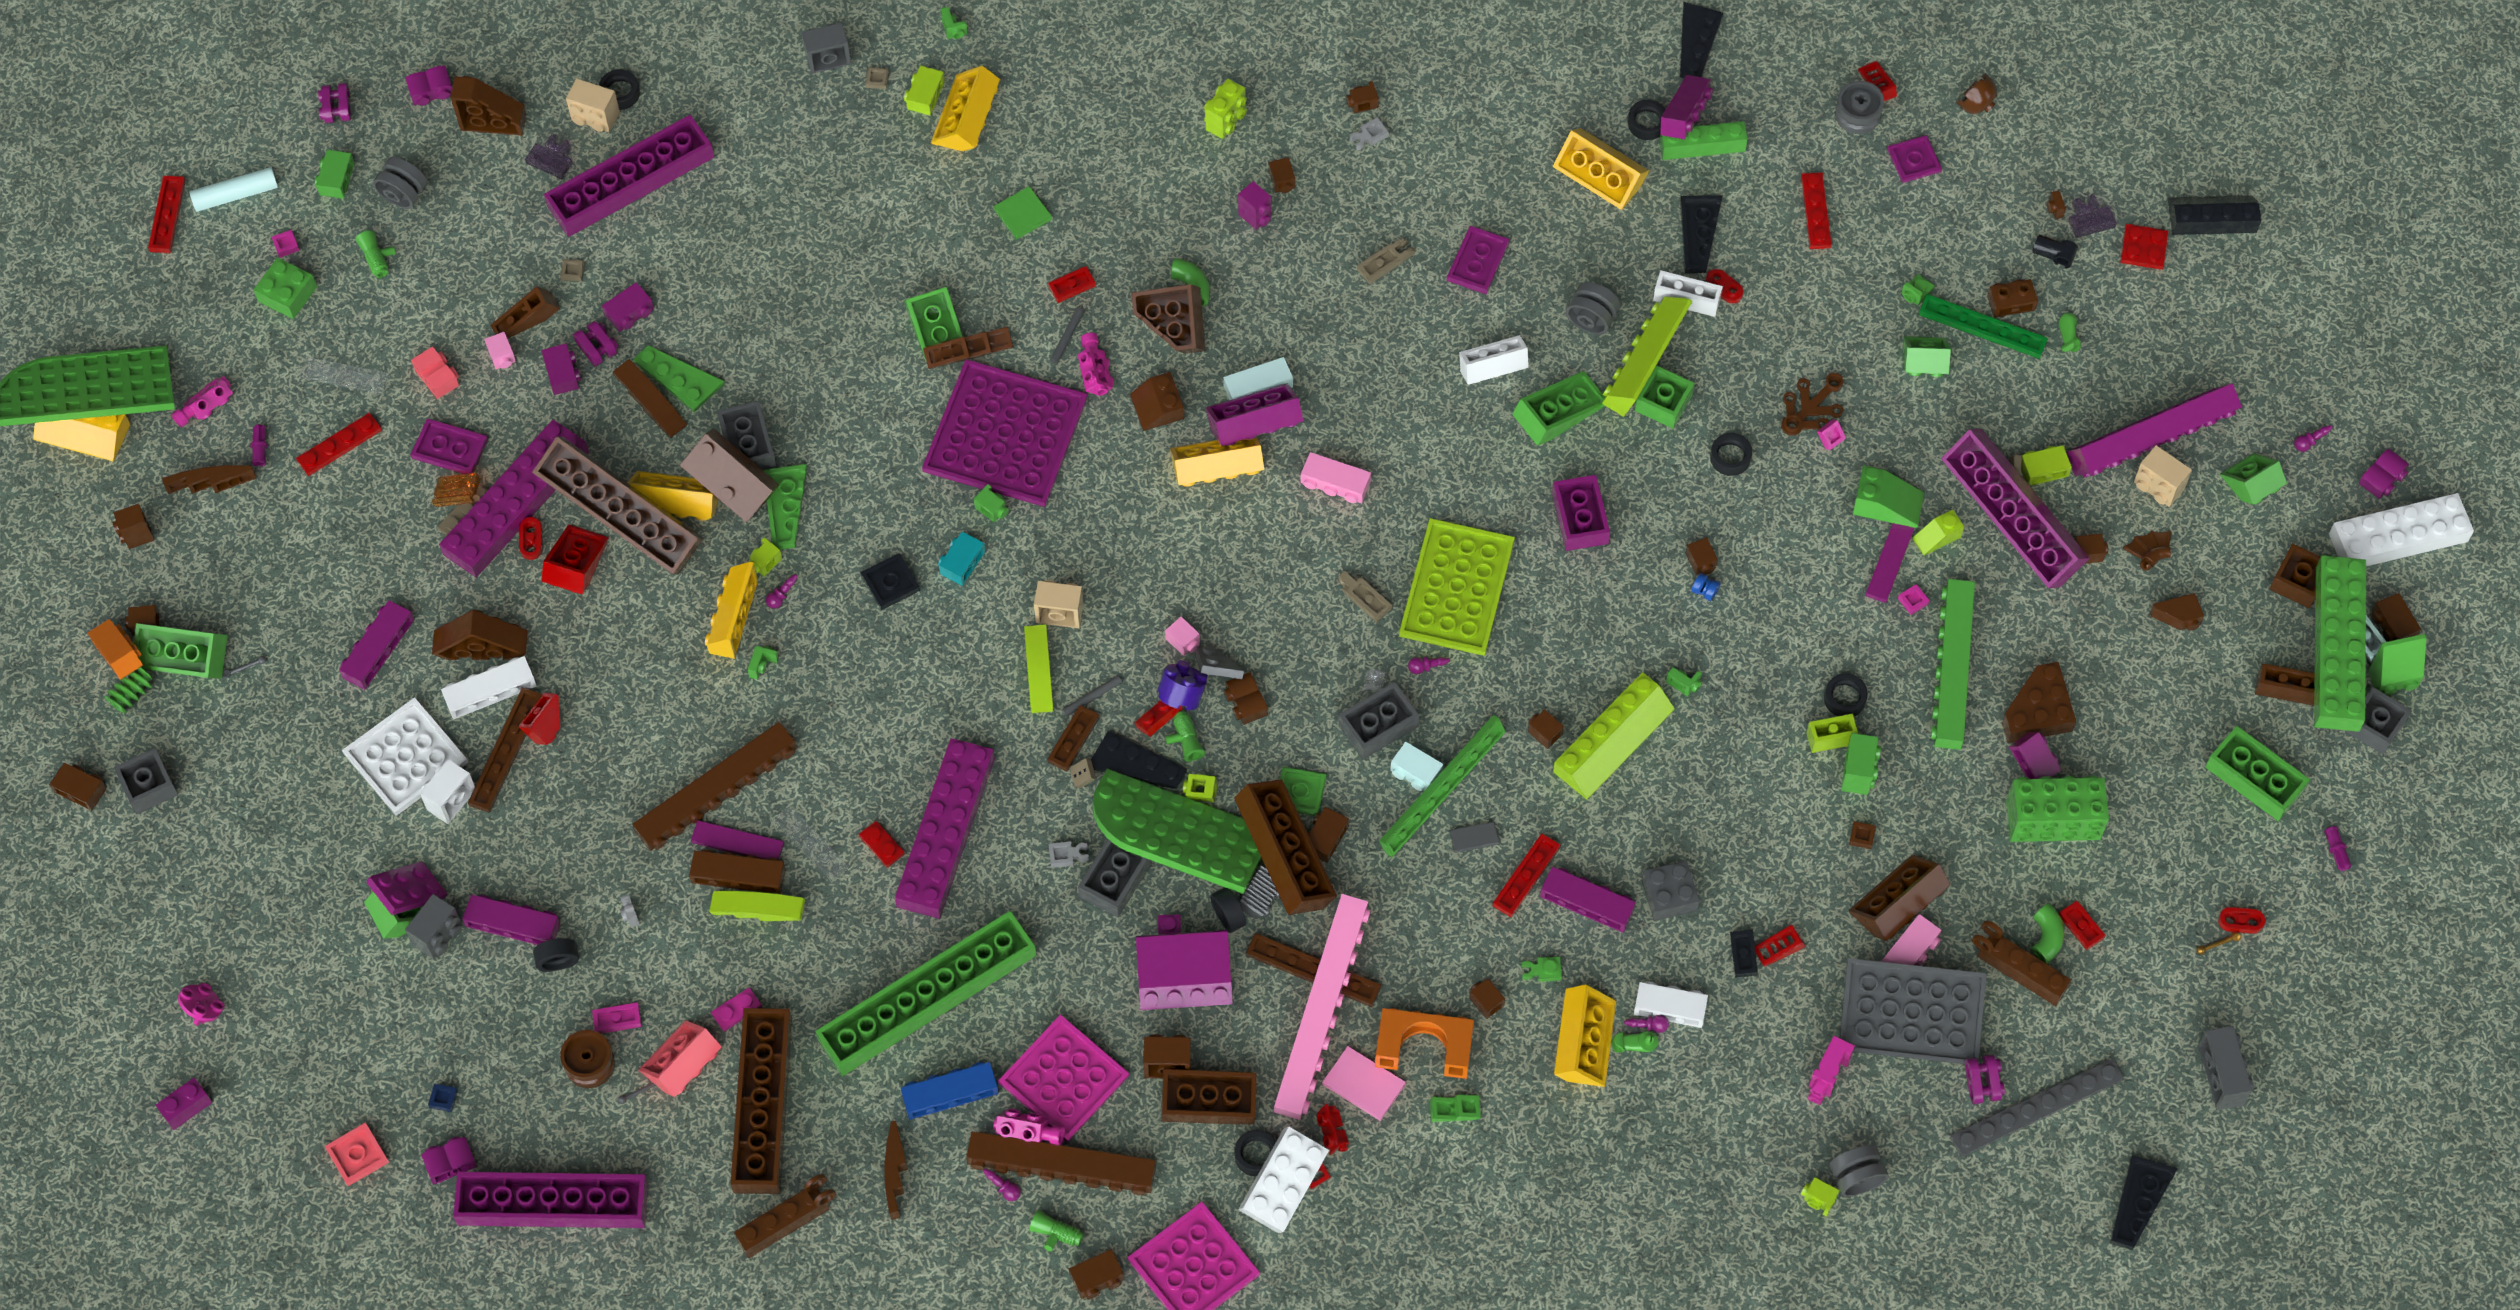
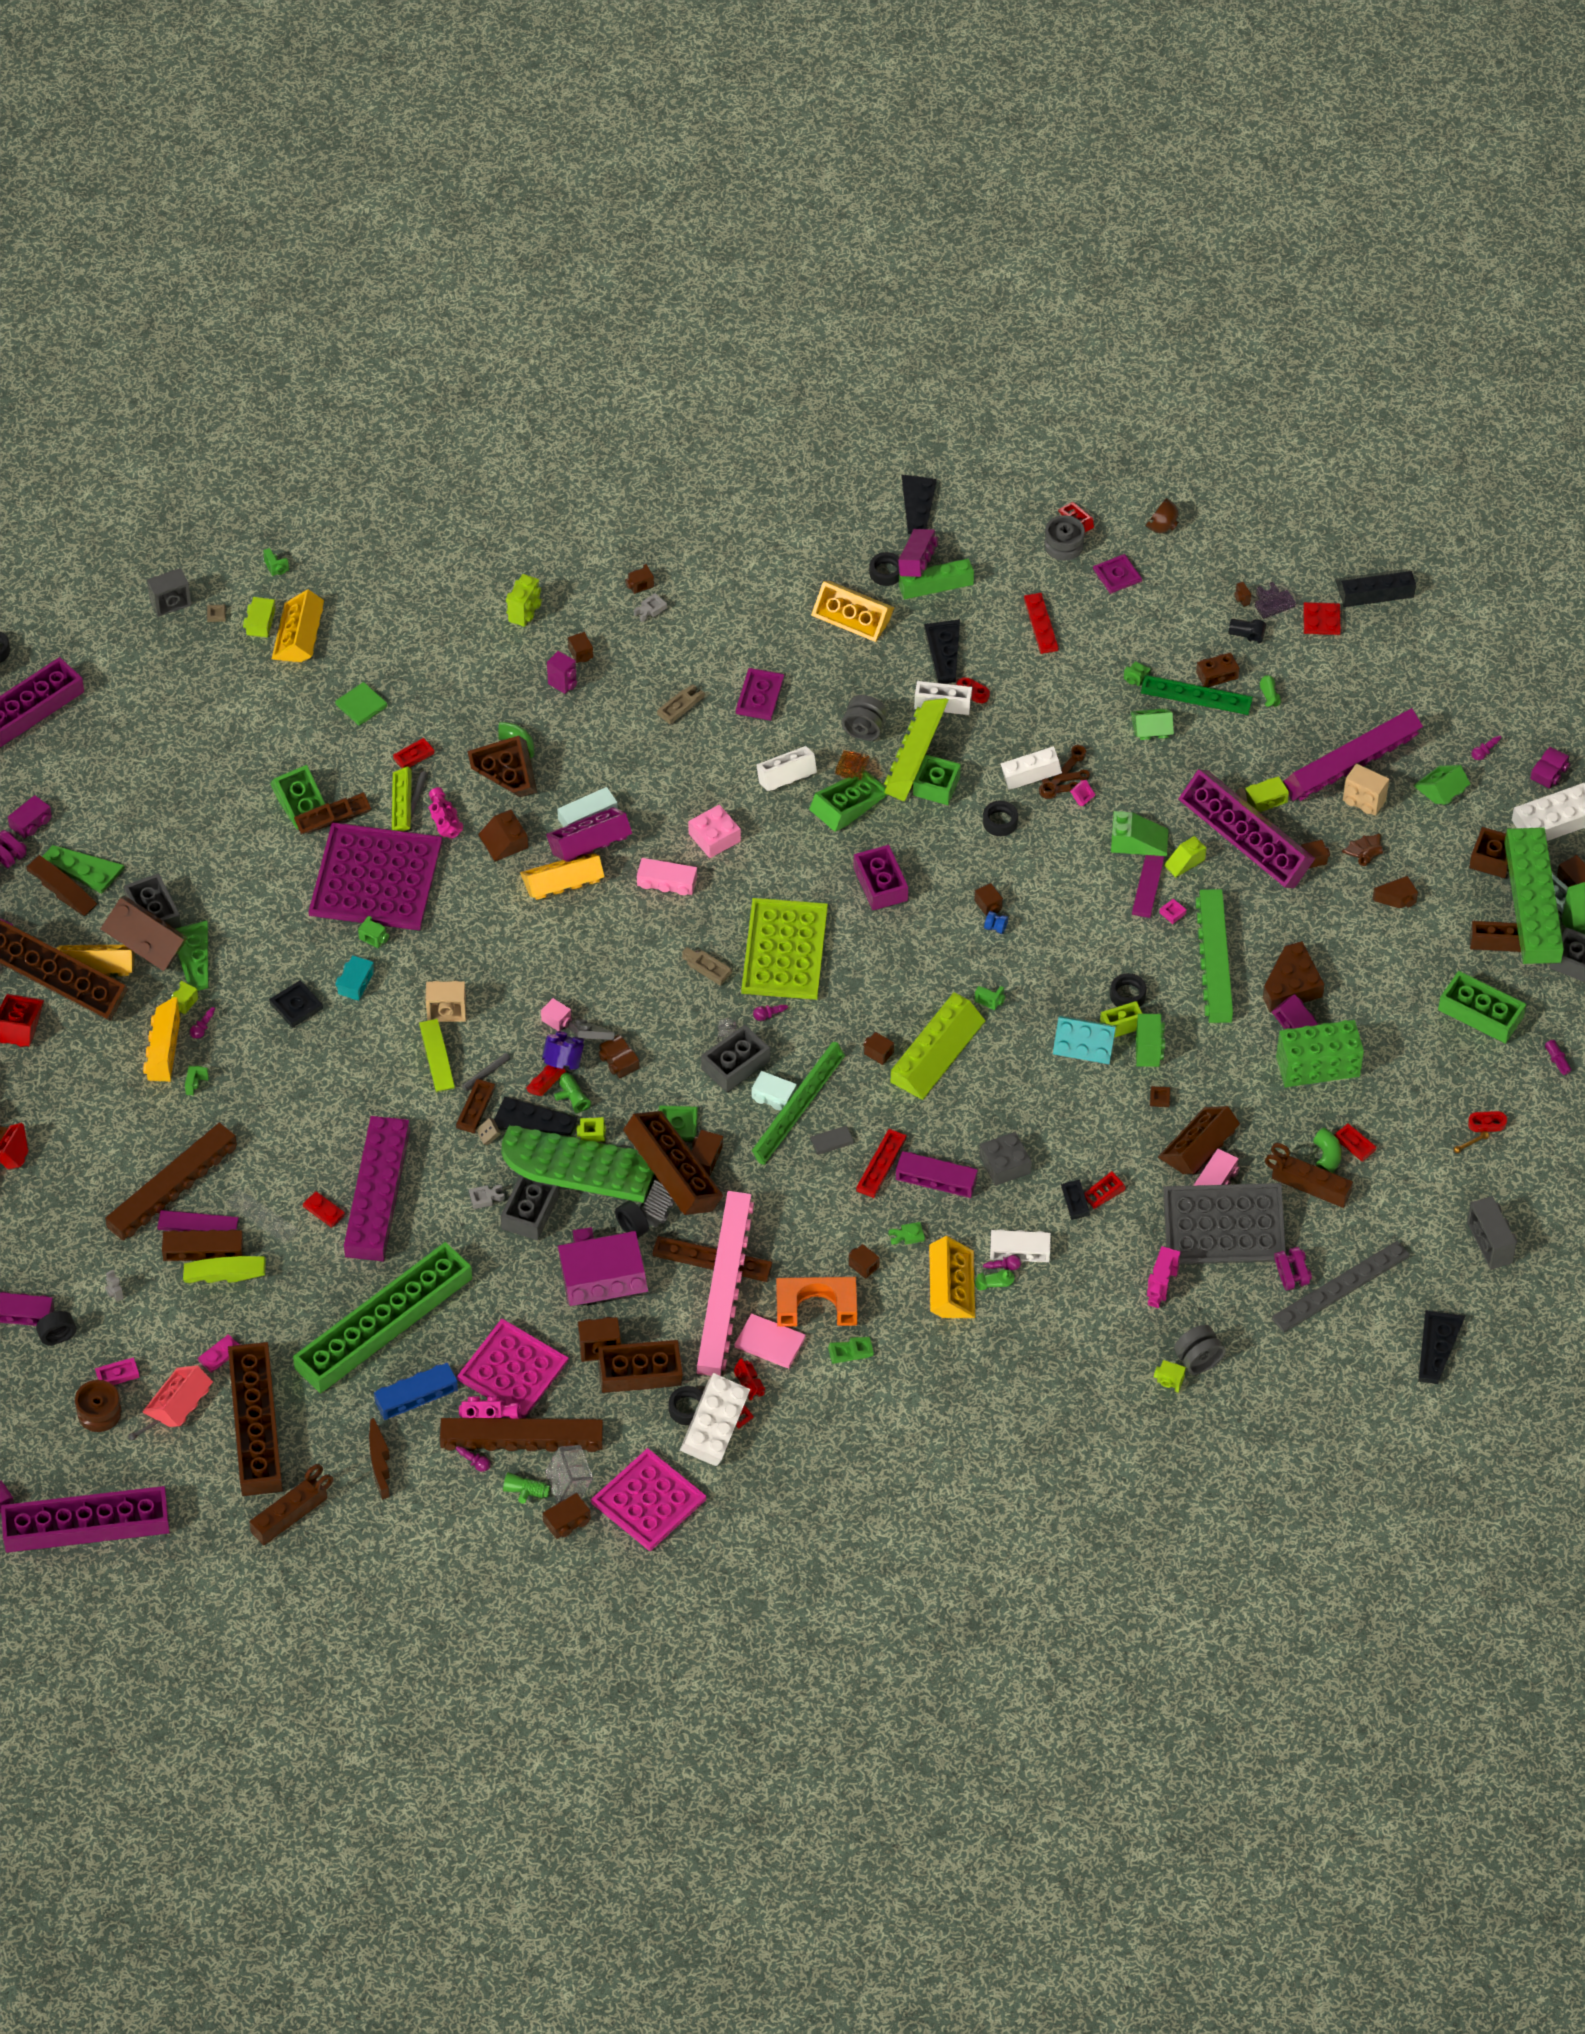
camera: 10 degrees left, 10 degrees down
(1049, 340) = (401, 799): none -> lime tile
(1105, 1224) = (569, 1472): none -> clear brick
(1399, 428) = (714, 831): none -> bright pink brick
(1569, 364) = (851, 765): none -> clear orange plate
(1776, 396) = (1031, 768): none -> white brick
(1785, 752) = (1084, 1039): none -> plate

